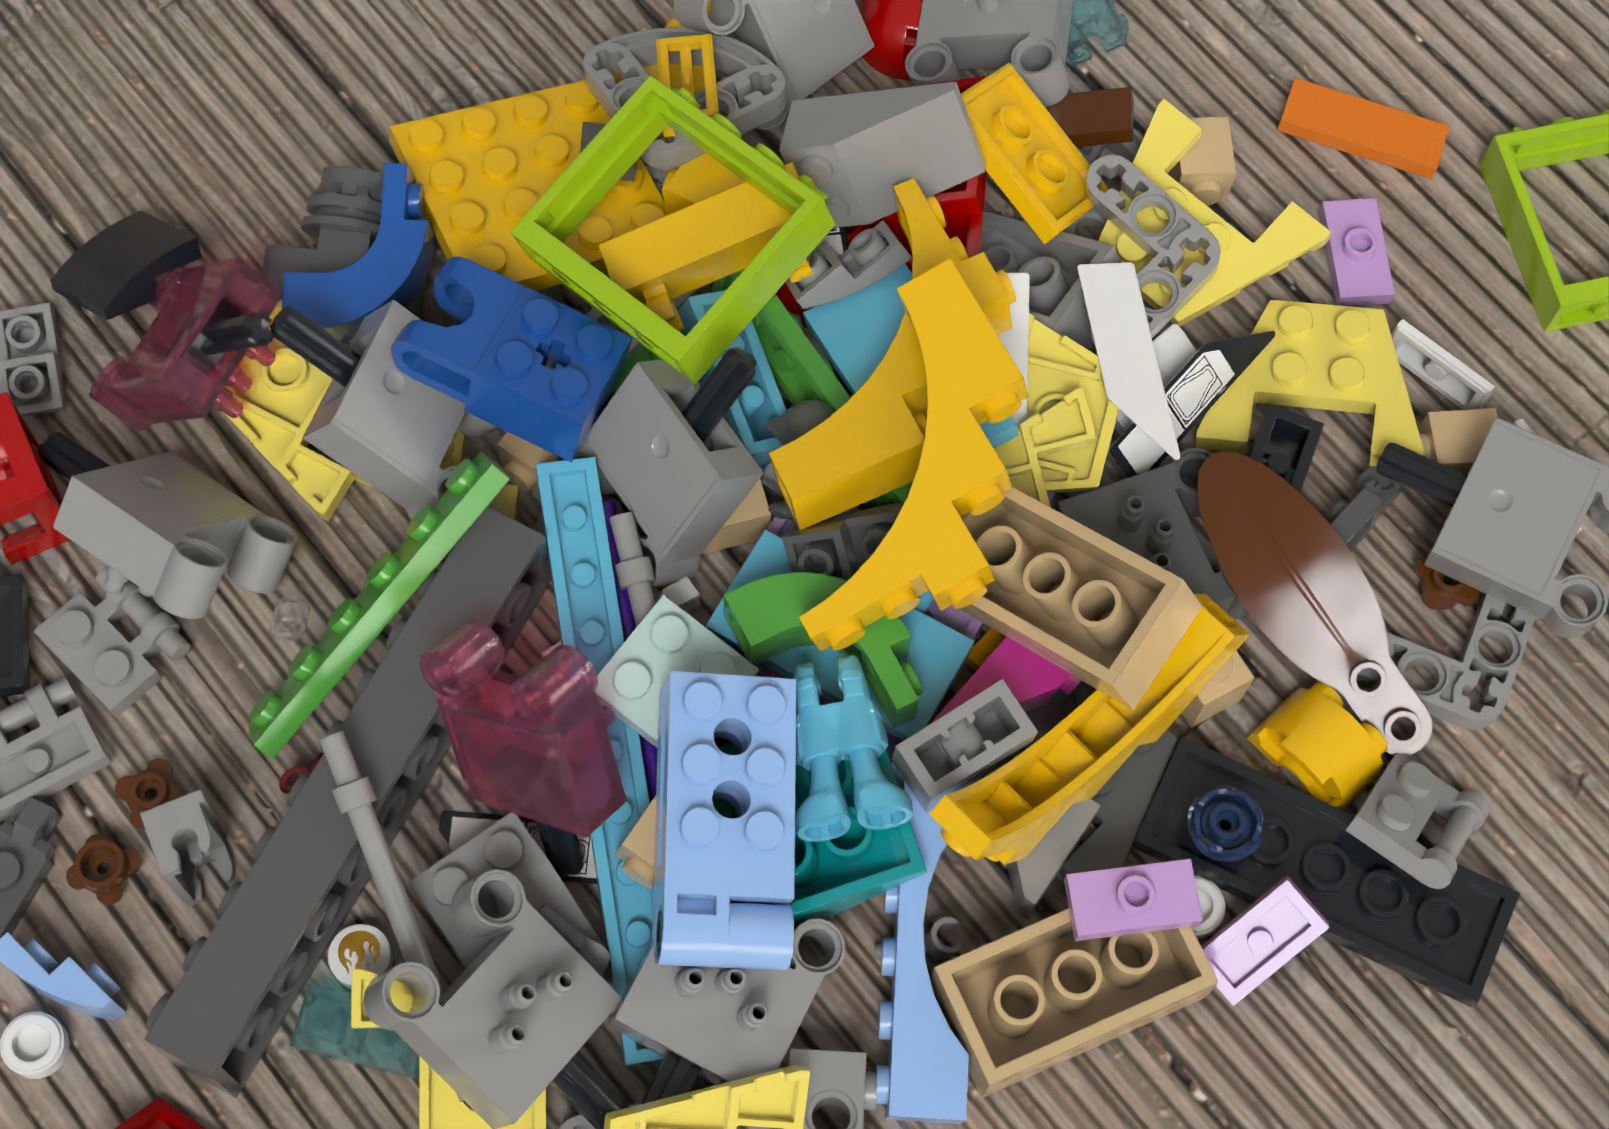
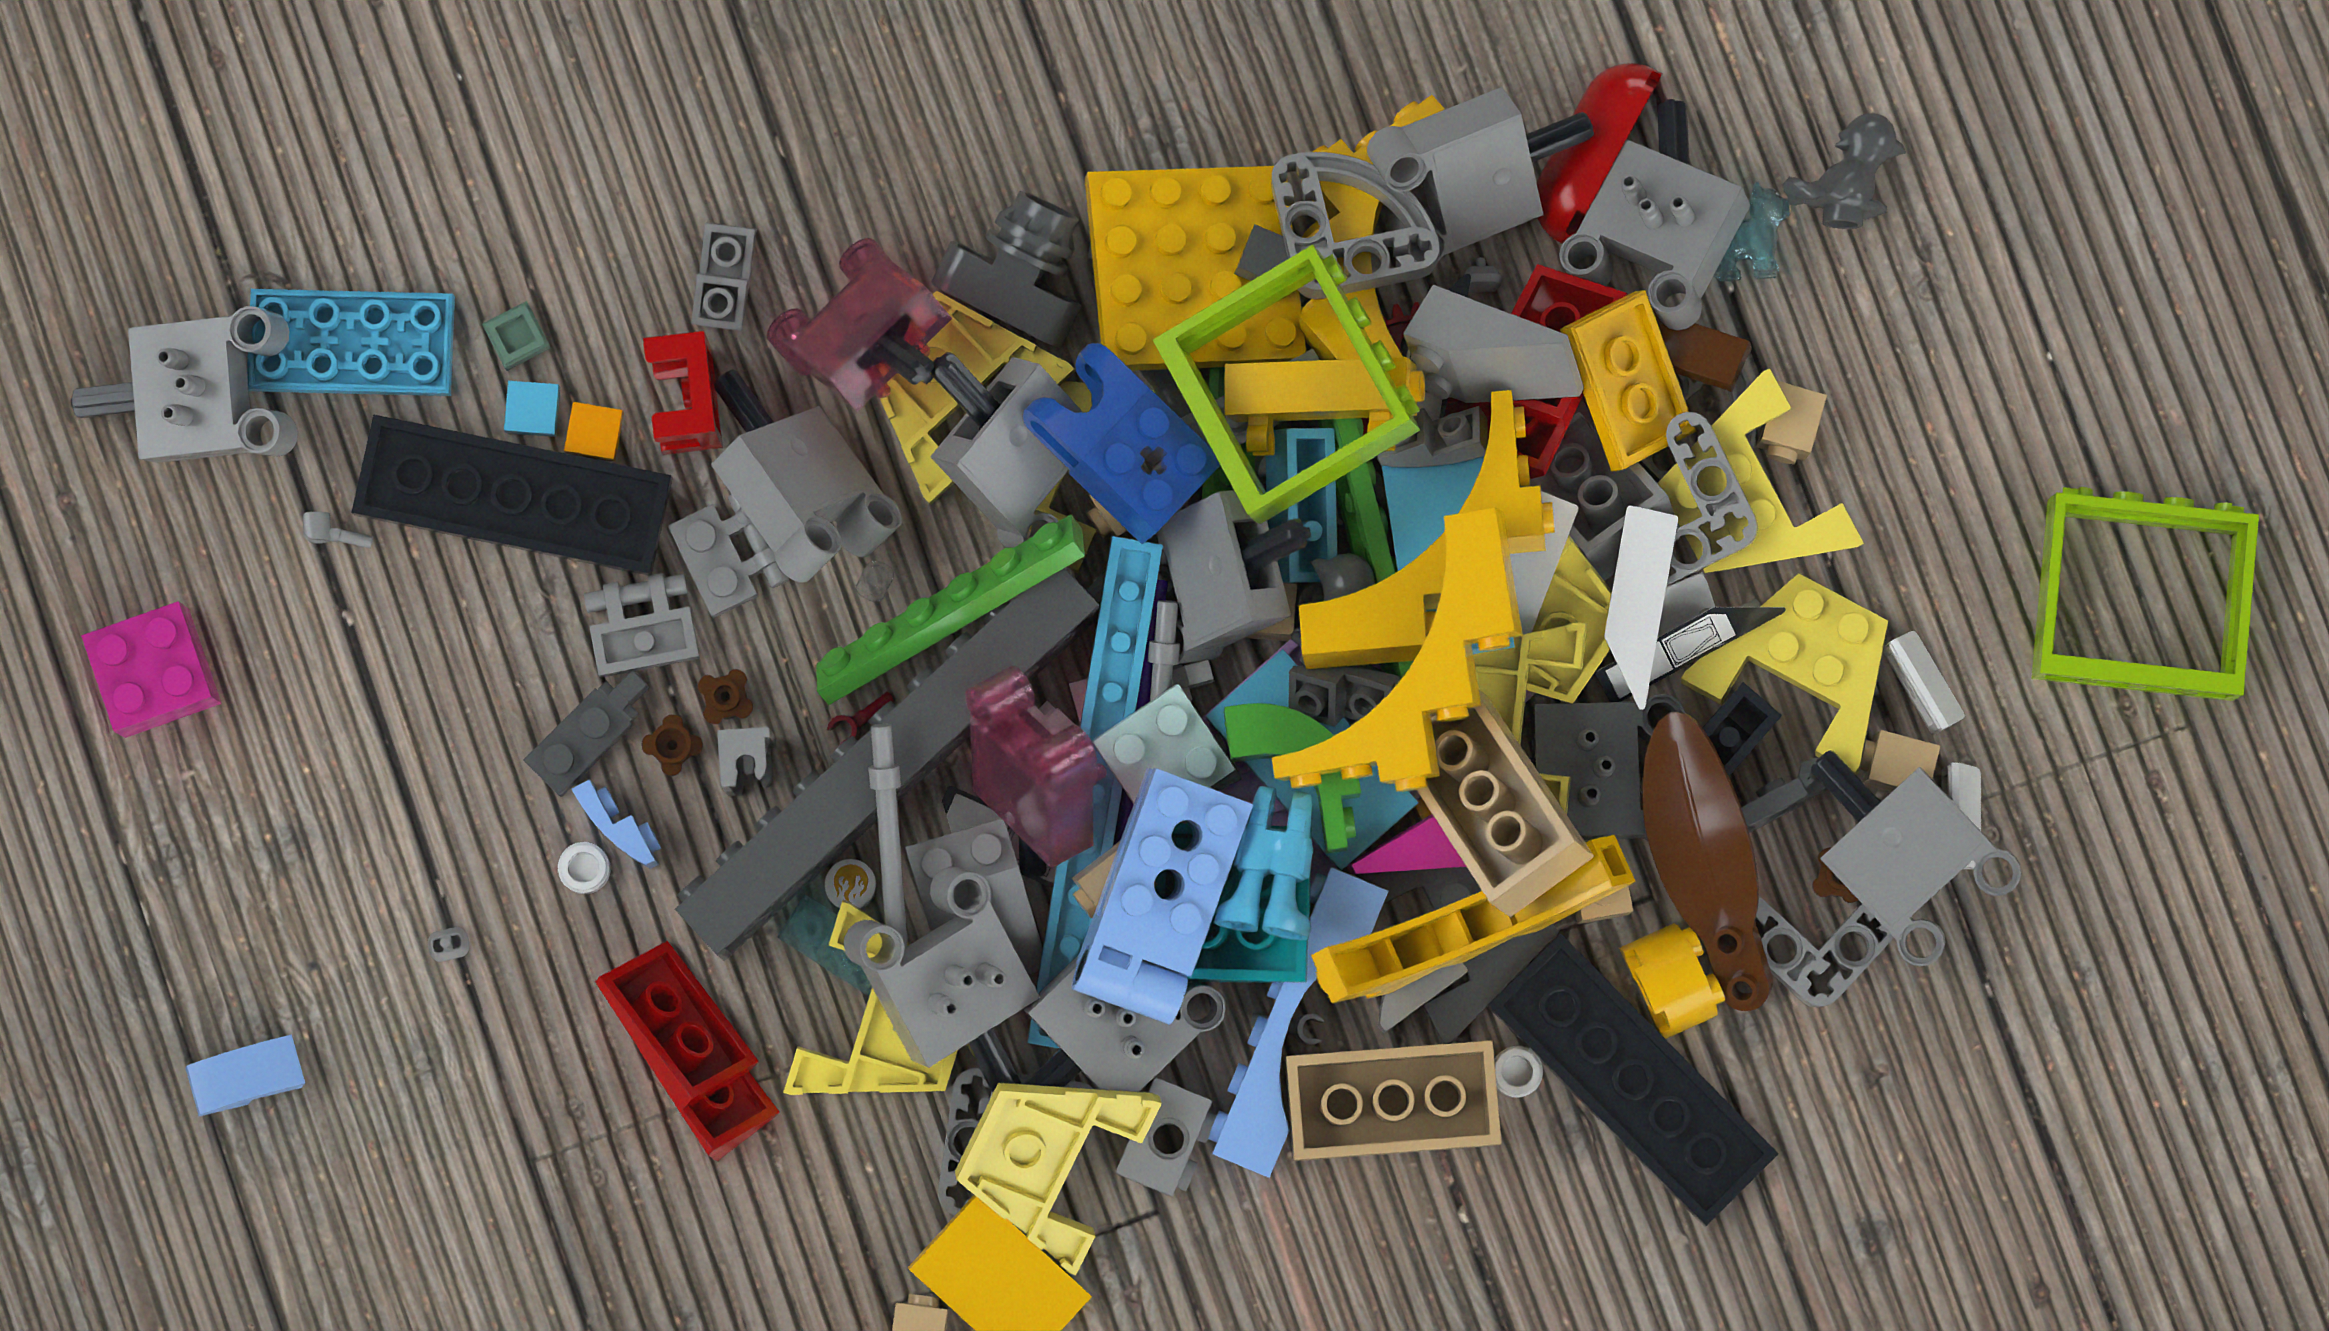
camera: 20 degrees right, 15 degrees up
(118, 264) = (826, 219): black slope -> none
(387, 272) = (1012, 330): blue arch -> none
(589, 948) = (1028, 946): light grey hand -> none
(685, 45) = (1363, 189): yellow tile -> none
(964, 745) = (1367, 899): light grey brick -> none
(1133, 899) = (1458, 1059): lavender plate -> none
(1227, 805) = (1564, 1003): dark blue plate -> none
(1263, 939) = (1554, 1119): plate -> none
(1357, 252) = (1896, 551): lavender plate -> none
(1363, 128) = (1955, 433): orange tile -> none
(1399, 811) = (1710, 1055): light grey plate -> none

